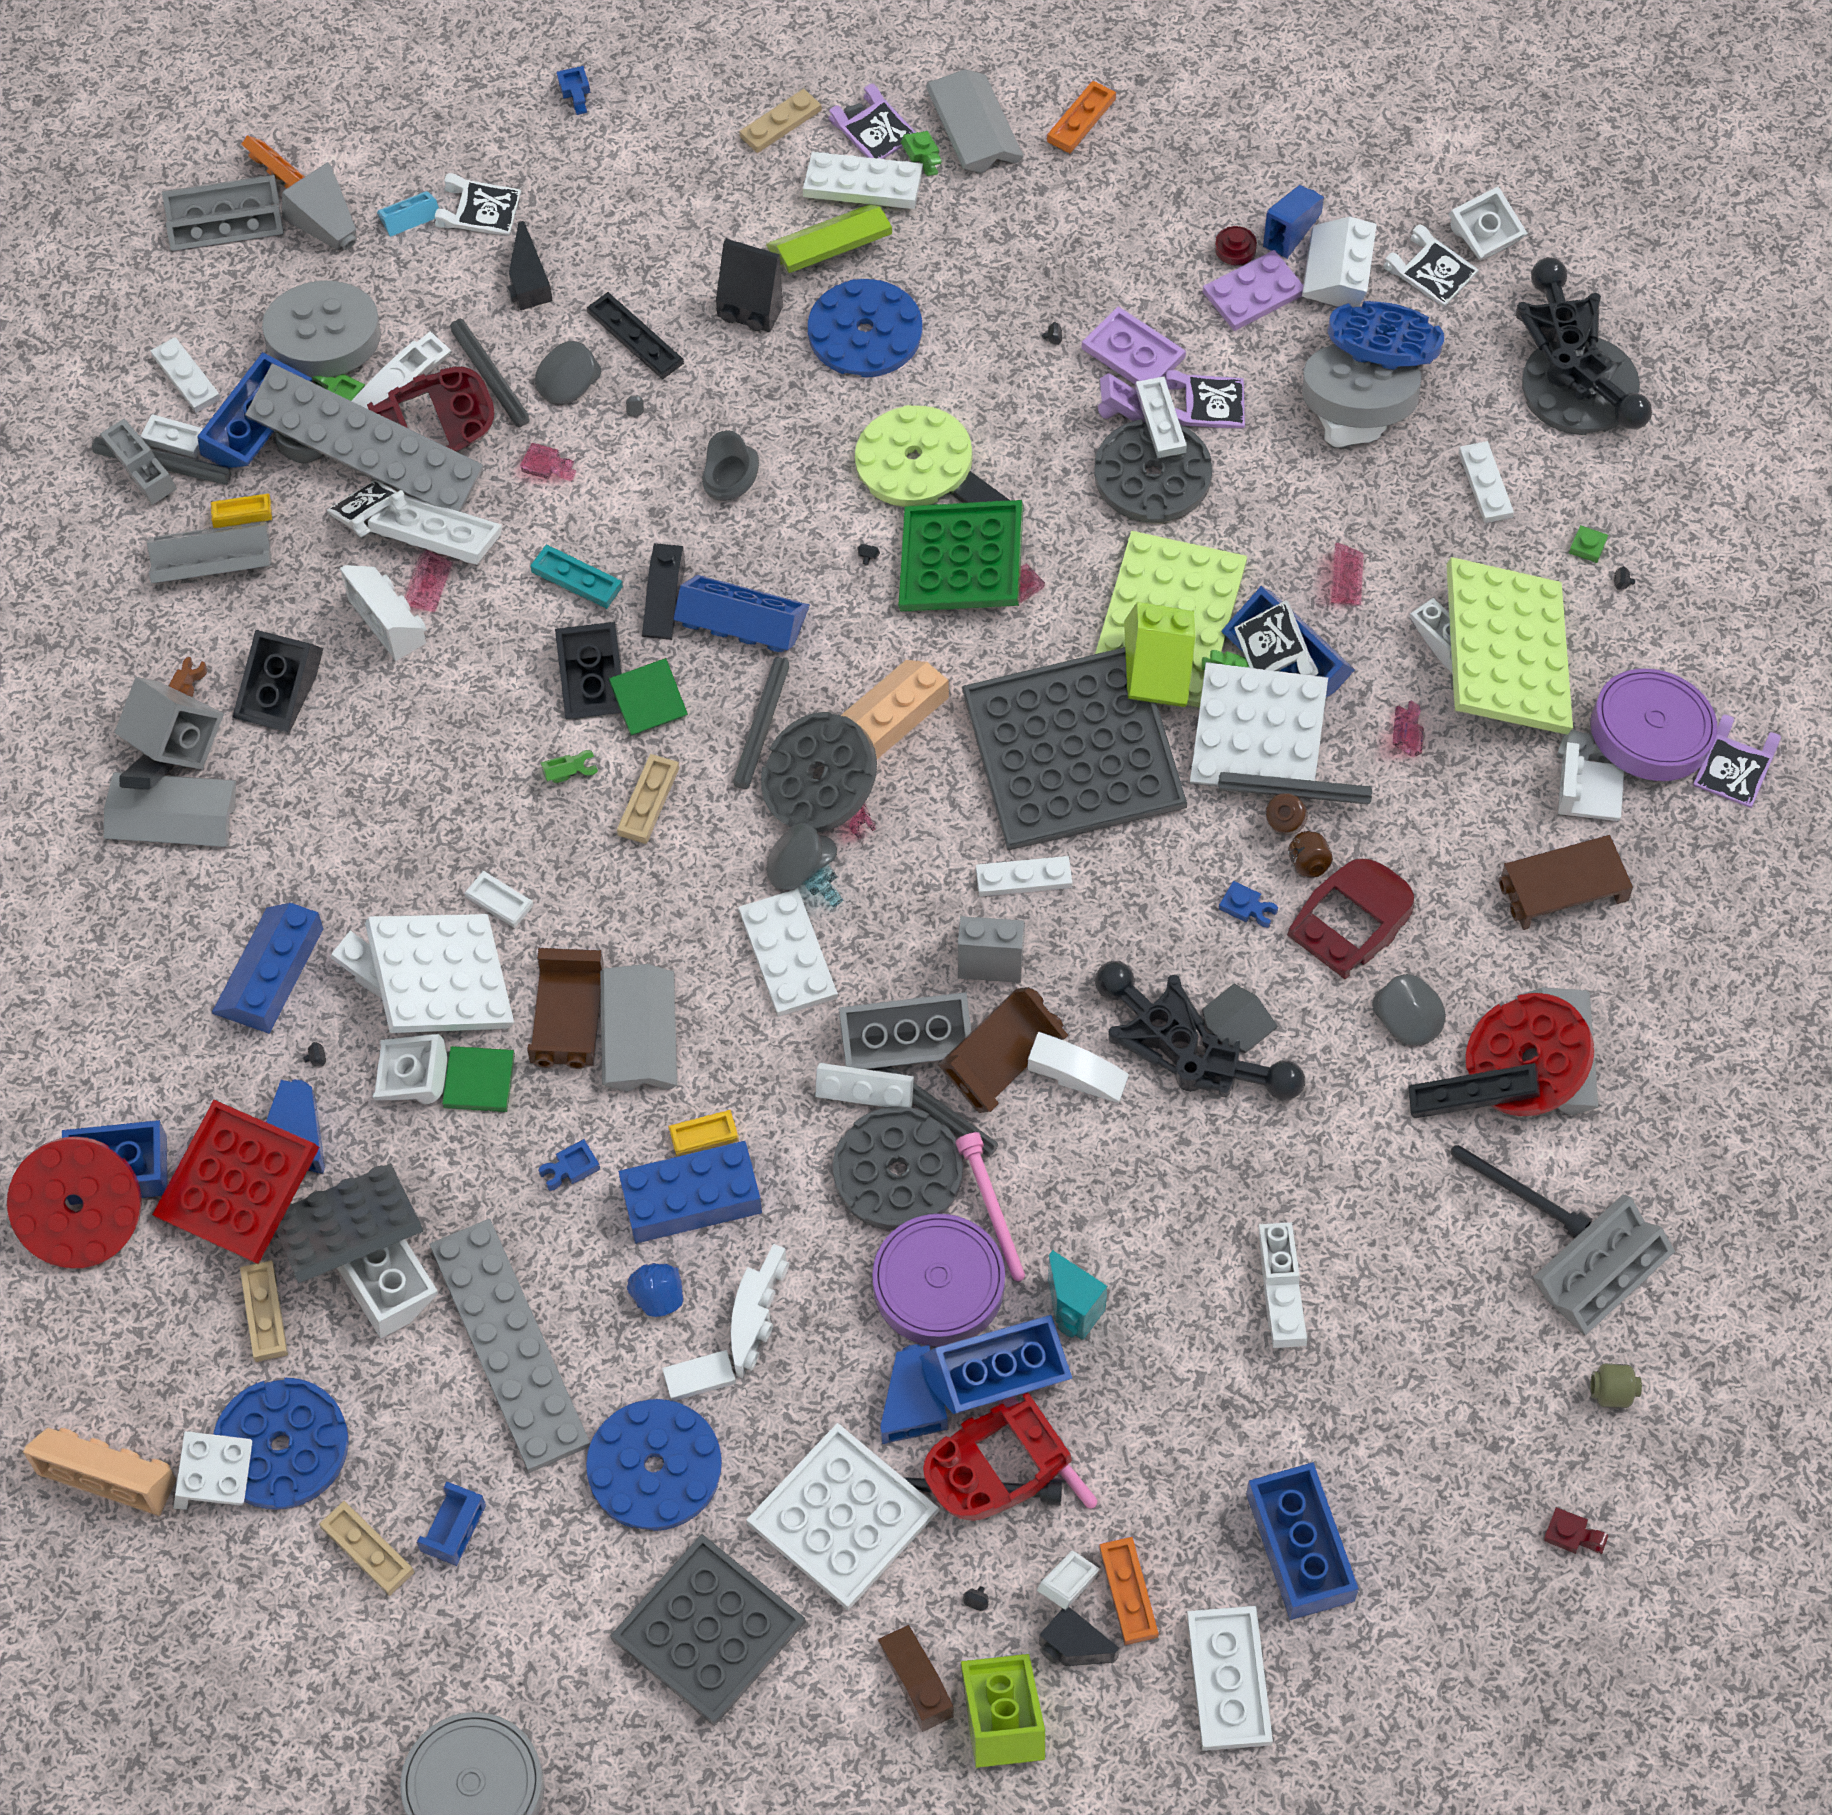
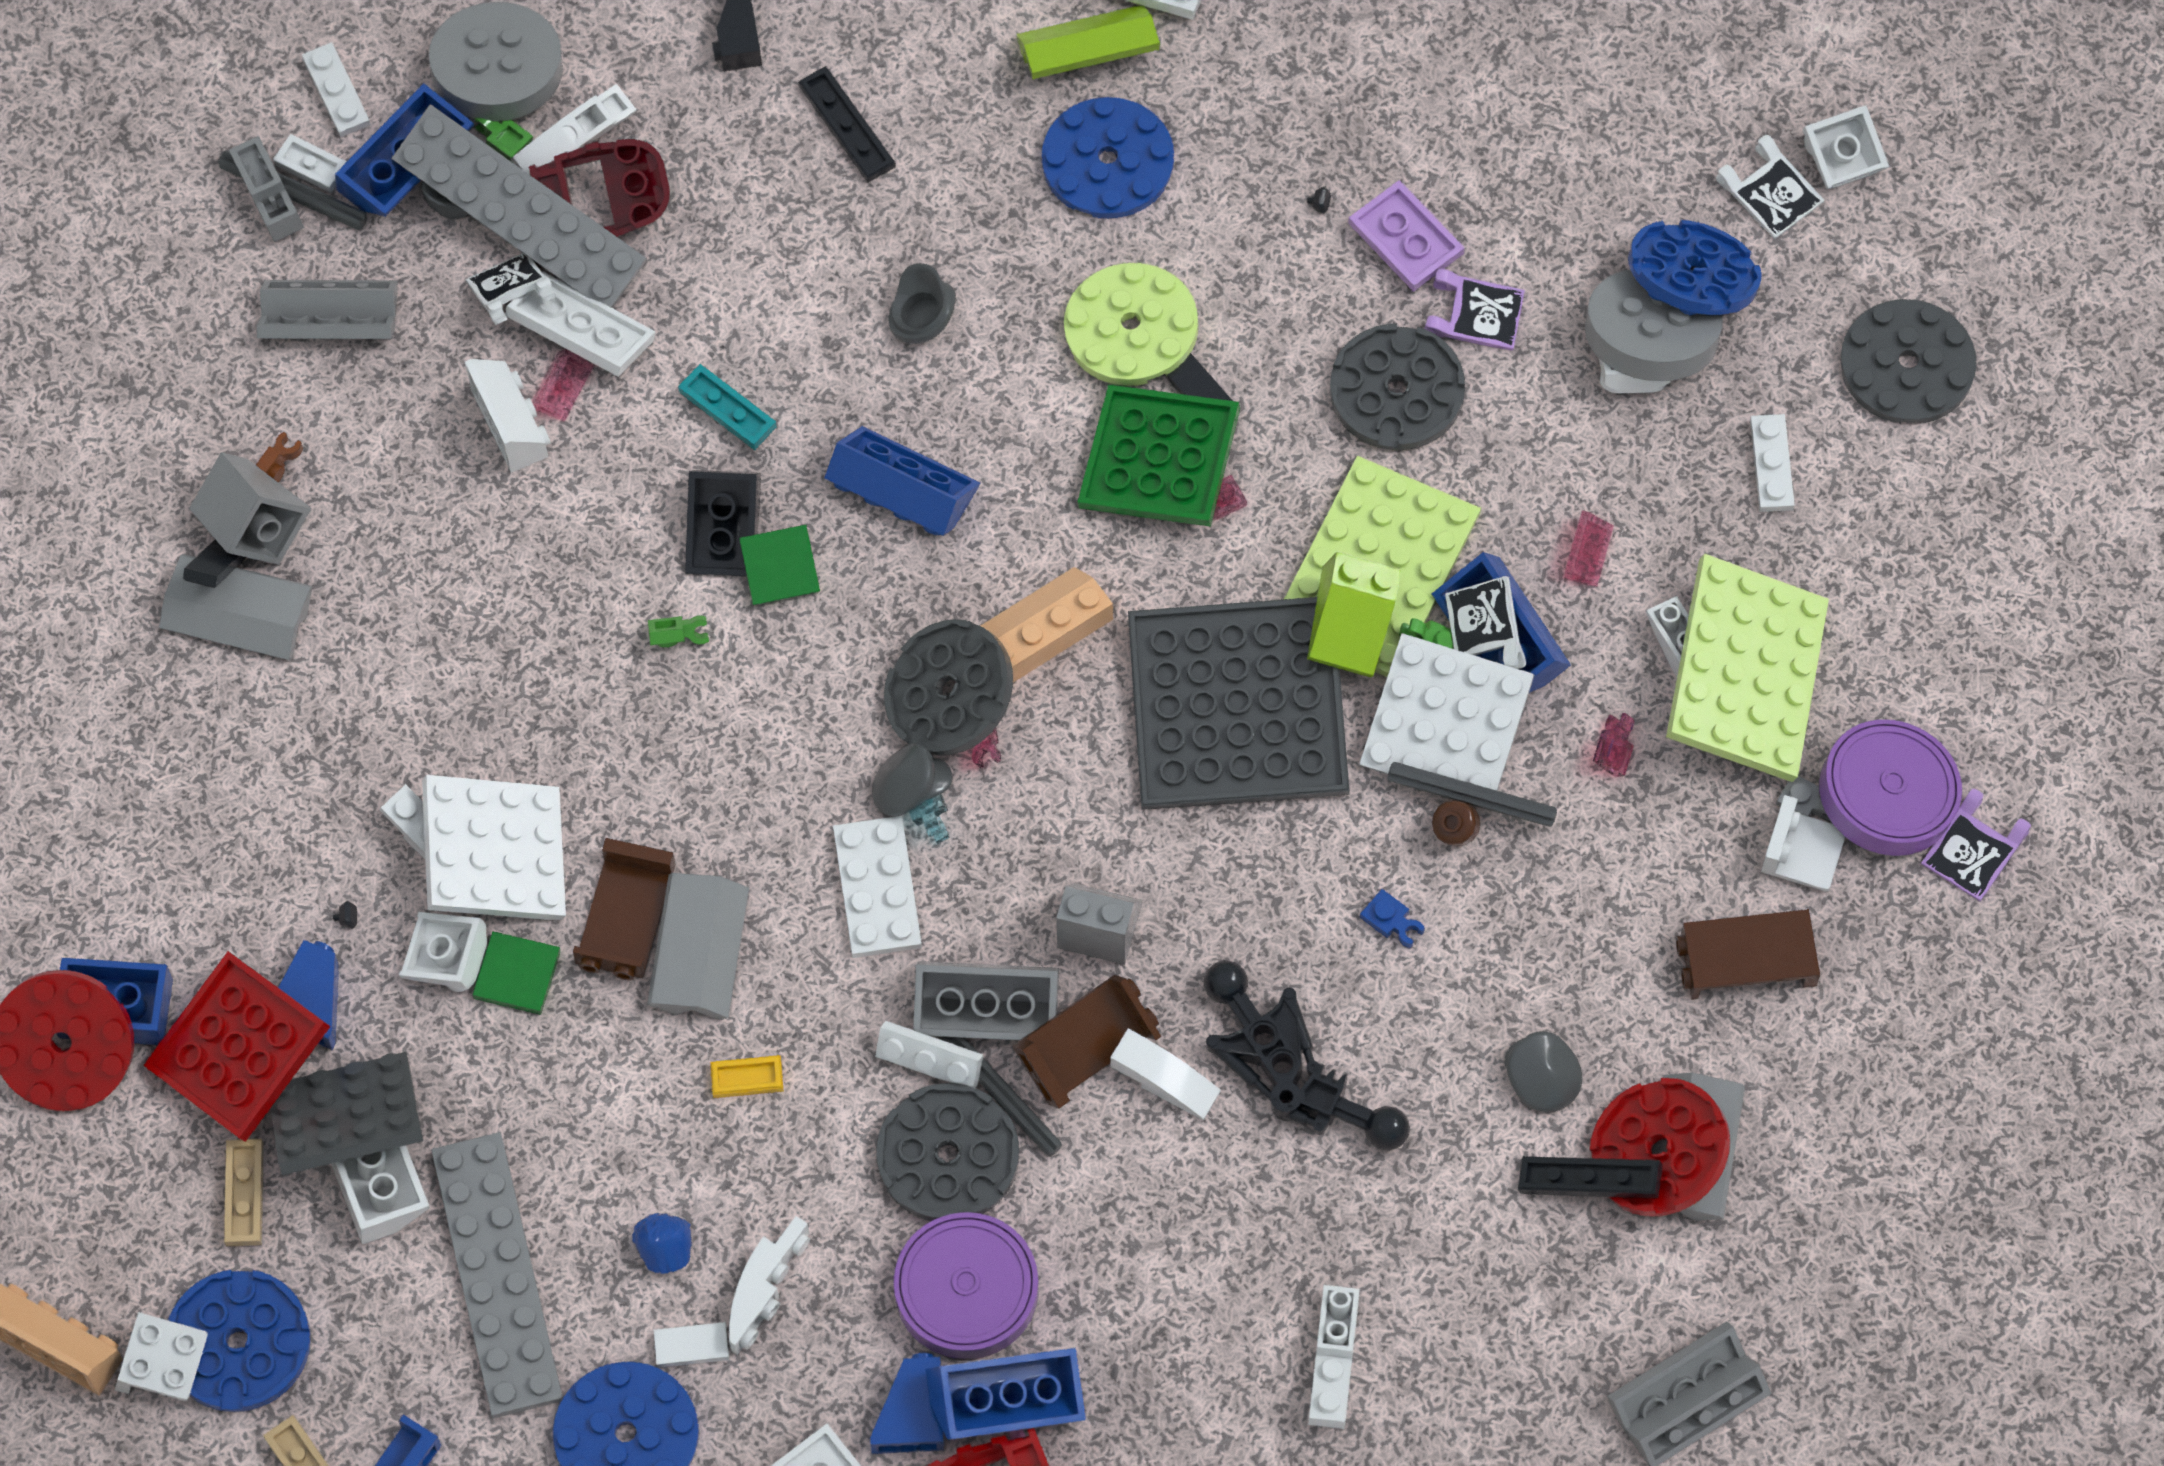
camera: 10 degrees right, 5 degrees up
(241, 510) = (371, 266): yellow tile -> none
(270, 966) = (313, 806): blue slope -> none
(276, 680) = (376, 475): black slope -> none
(489, 372) = (675, 143): dark grey axle -> none
(499, 899) = (574, 771): white tile -> none
(544, 461) = (718, 262): clear pink plate -> none
(566, 373) = (761, 159): dark grey piece -> none
(573, 1162) = (602, 1086): blue plate -> none
(634, 406) = (830, 211): dark grey rock -> none
(648, 798) = (758, 683): tan plate -> none
(663, 587) = (821, 432): black slope -> none
(690, 1192) = (719, 1141): blue brick -> none
(749, 286) = (982, 92): black slope -> none
(761, 723) = (899, 614): dark grey axle -> none
(868, 552) = (1057, 431): black rock -> none
(971, 1147) = (1029, 1145): bright pink piece -> none
(1024, 876) = (1153, 843): white plate -> none
(1075, 1296) = (1108, 1332): teal slope -> none
(1119, 398) = (1380, 297): lavender tile -> none
(1160, 417) = (1417, 326): white plate -> none
(1235, 245) = (1550, 125): dark red plate -> none
(1239, 1017) = (1353, 1048): dark grey slope -> none
(1253, 290) = (1560, 183): lavender plate -> none
(1291, 220) = (1621, 105): blue slope -> none
(1310, 854) = (1472, 872): reddish brown head -> none
(1339, 261) = (1663, 167): white slope -> none
(1372, 889) = (1537, 930): dark red slope -> none
(1568, 329) = (1894, 340): black piece -> none
(1573, 1222) = (1666, 1342): black piece -> none
(1588, 544) = (1871, 557): bright green plate -> none
(1622, 578) = (1900, 605): black rock -> none

